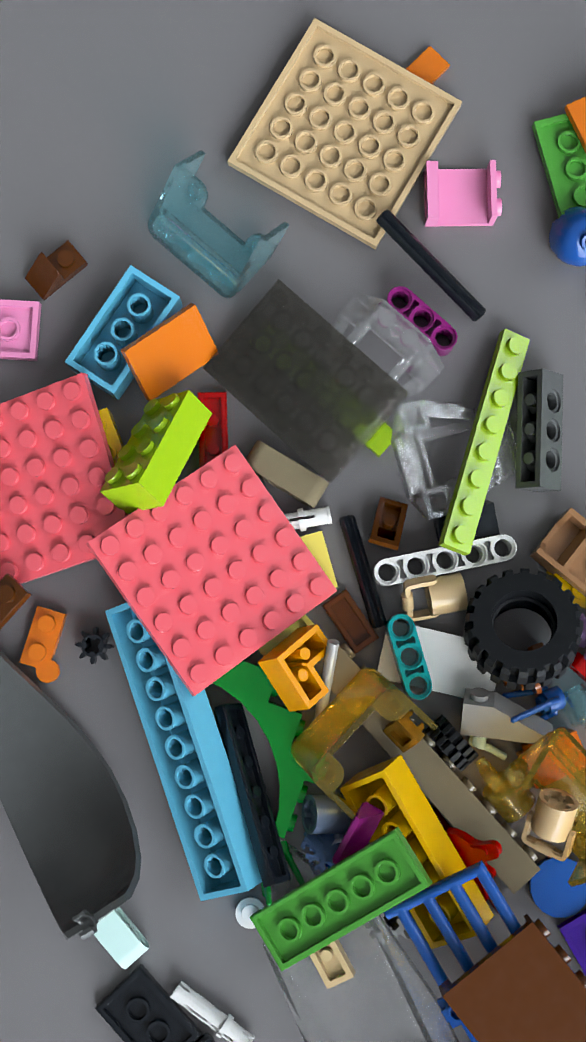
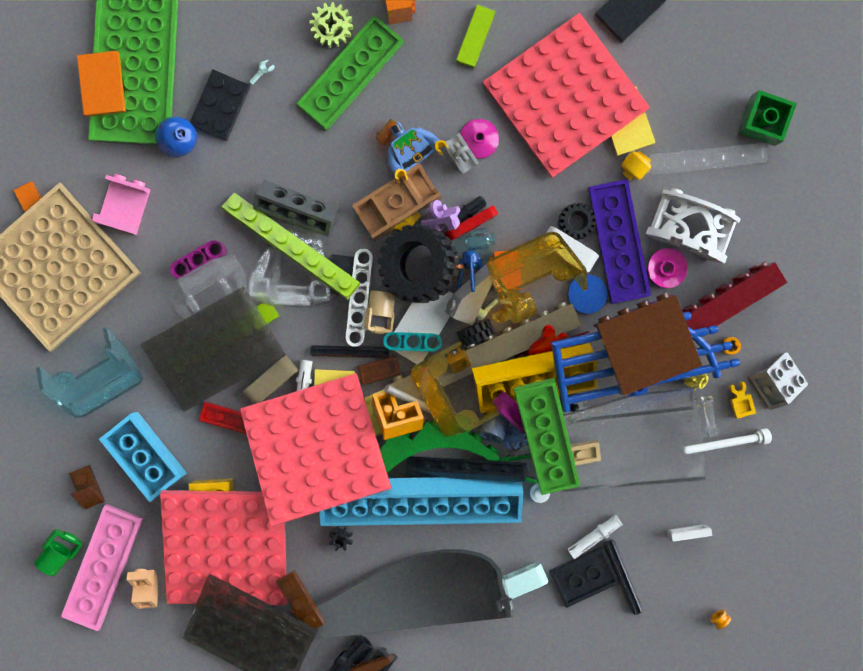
camera: 65 degrees left, 5 degrees up
(43, 642) = (329, 570): orange hinge -> none
(156, 452) = (227, 462): lime brick -> none
(169, 352) = (165, 431): orange tile -> none
(388, 523) = (324, 325): reddish brown slope -> none
(431, 265) = (163, 241): black axle -> none
(552, 822) = (544, 287): tan piece -> none

